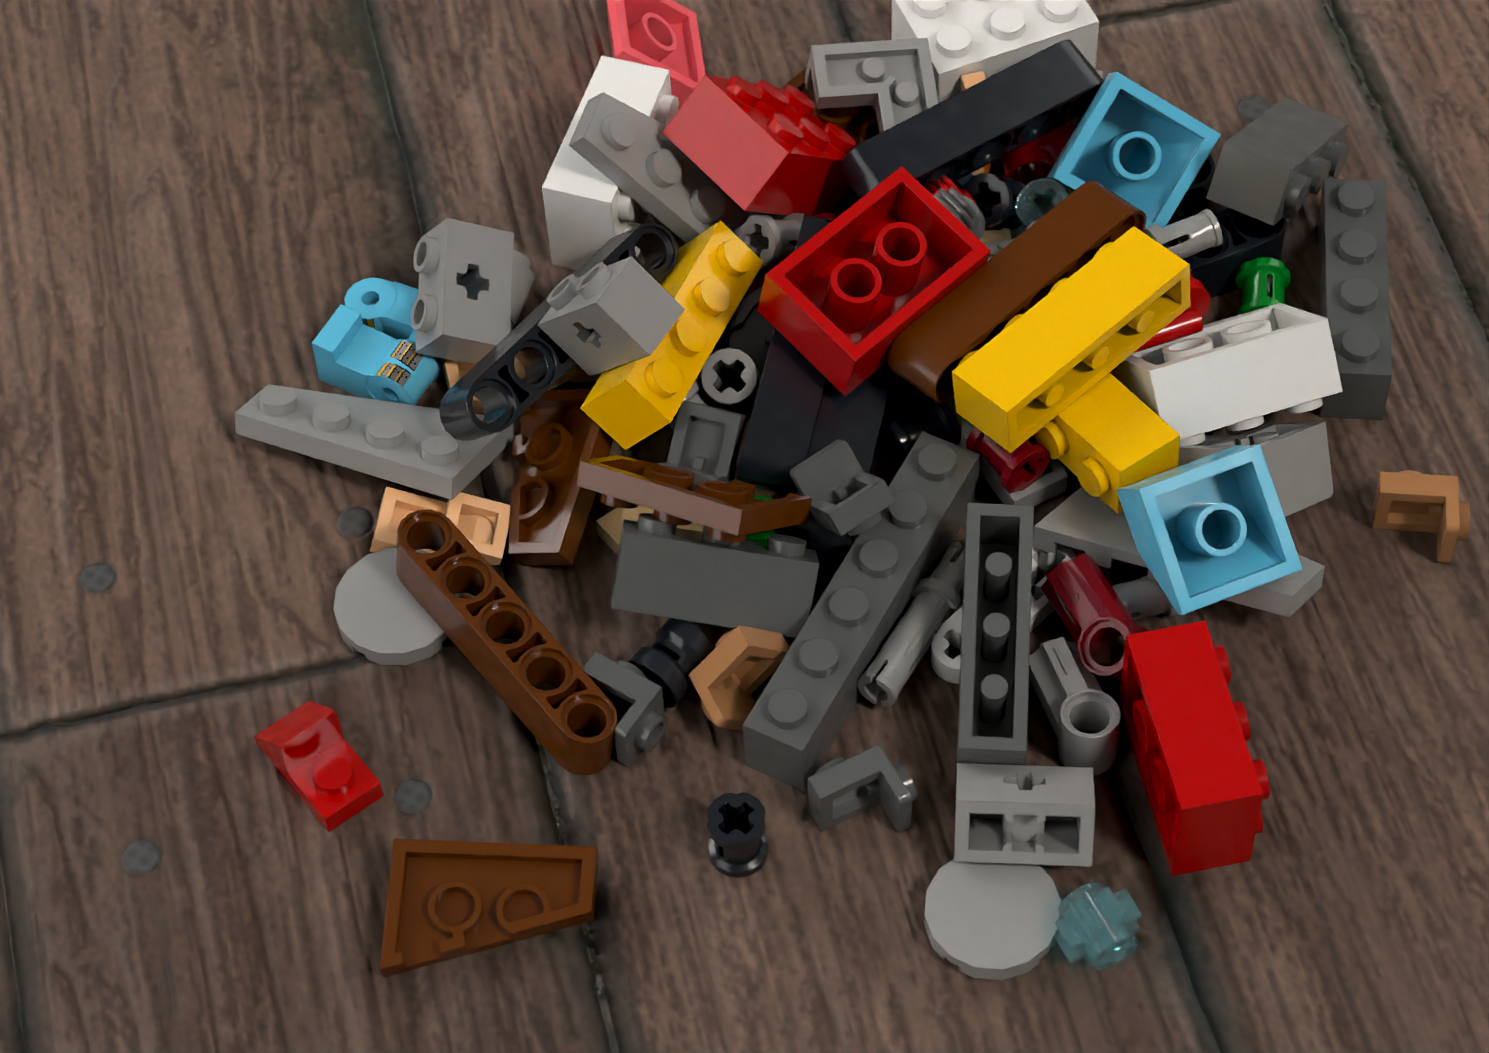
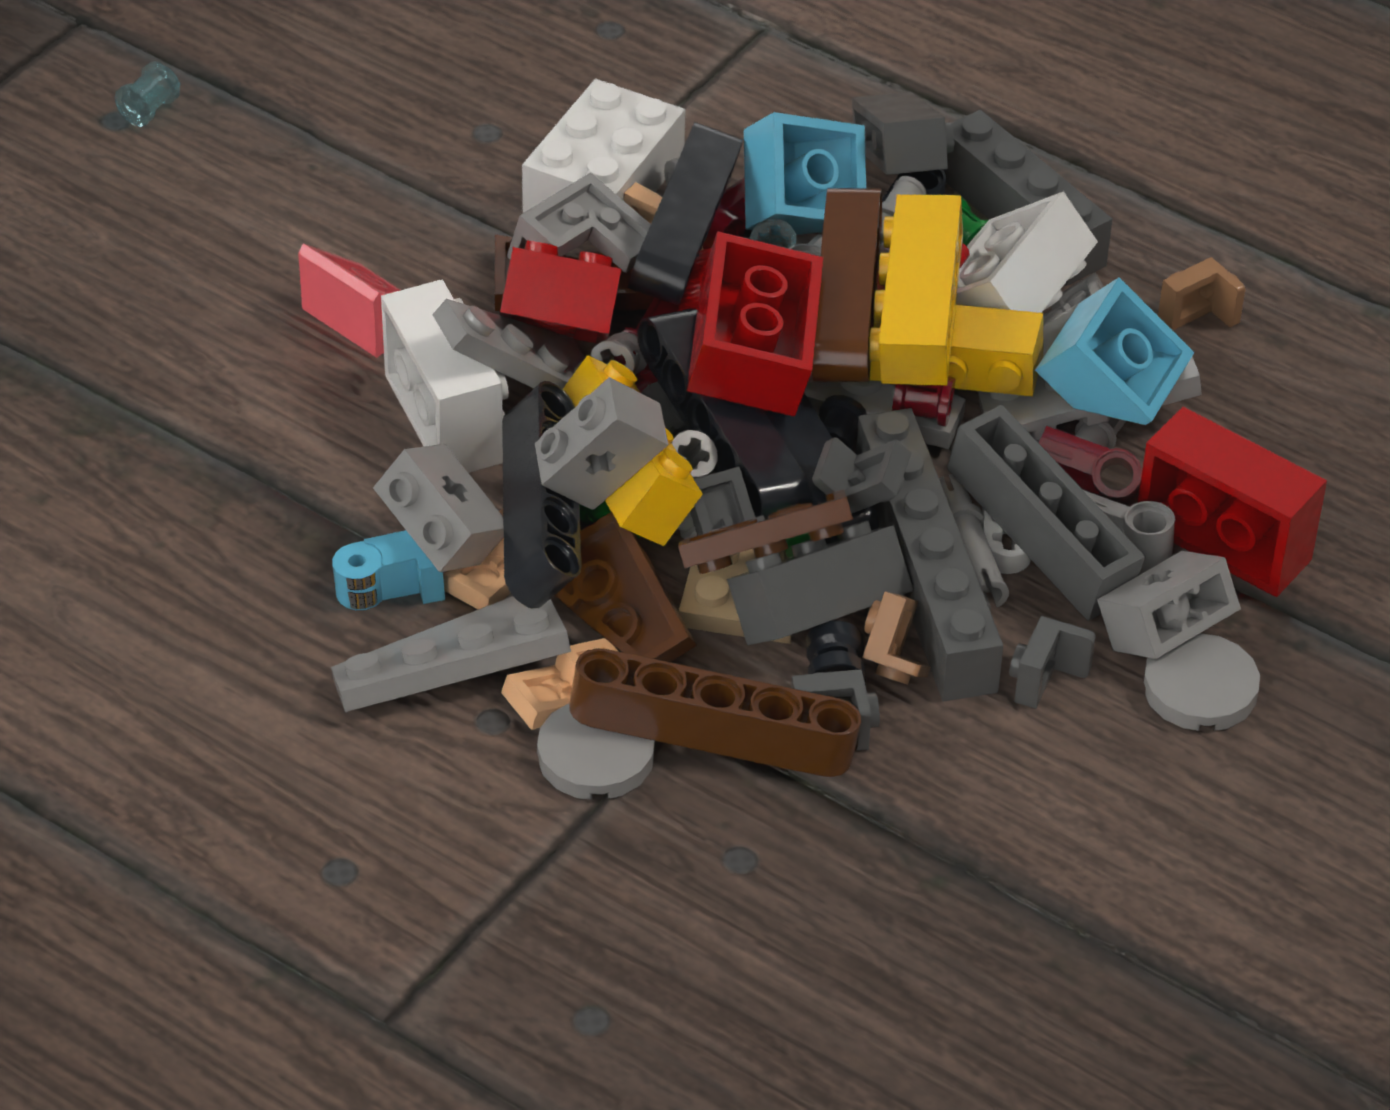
camera: 45 degrees left, 10 degrees down
(320, 764) = (645, 876): red slope -> none
(370, 361) = (396, 607): medium azure leg -> none
(480, 896) = (870, 880): reddish brown wing -> none
(737, 834) = (984, 743): black bush -> none
(1097, 925) = (1280, 640): clear light blue gear -> none

